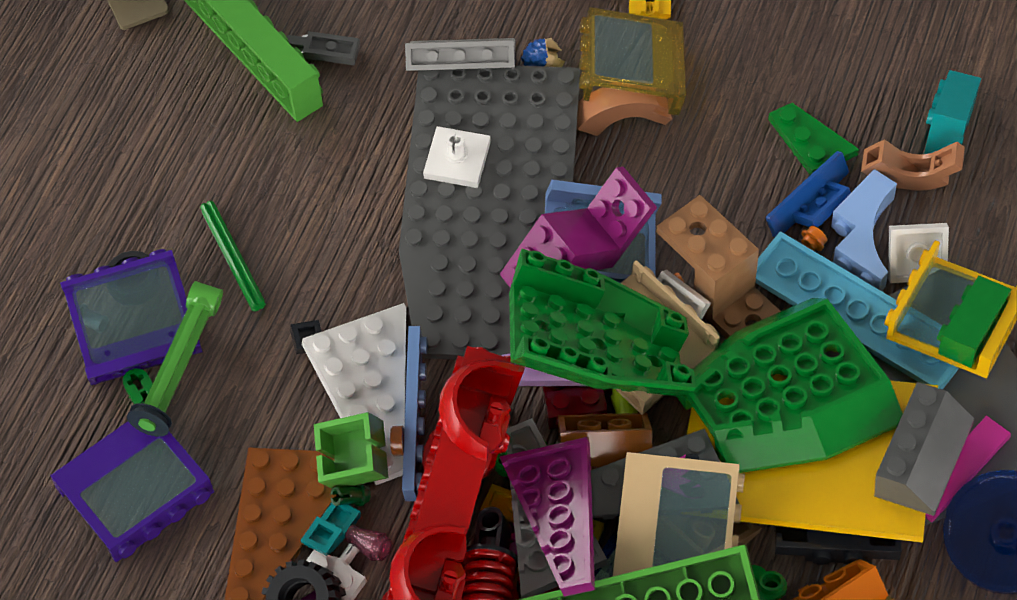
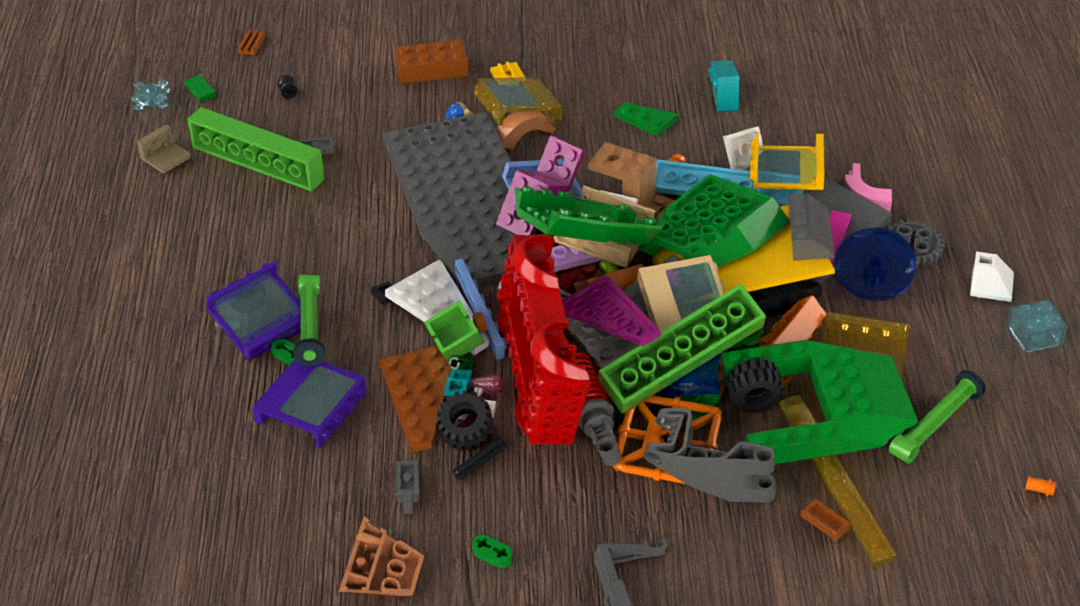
camera: 25 degrees left, 15 degrees down
(233, 256) = (309, 267): green axle -> none
(457, 157) = (435, 171): white tile -> none
(460, 54) = (405, 120): light grey fence -> none
(813, 199) = (667, 140): blue bracket -> none
(856, 221) = (698, 145): light blue arch -> none
(913, 170) = (718, 115): nougat arch -> none
(973, 321) = (800, 162): green brick -> none

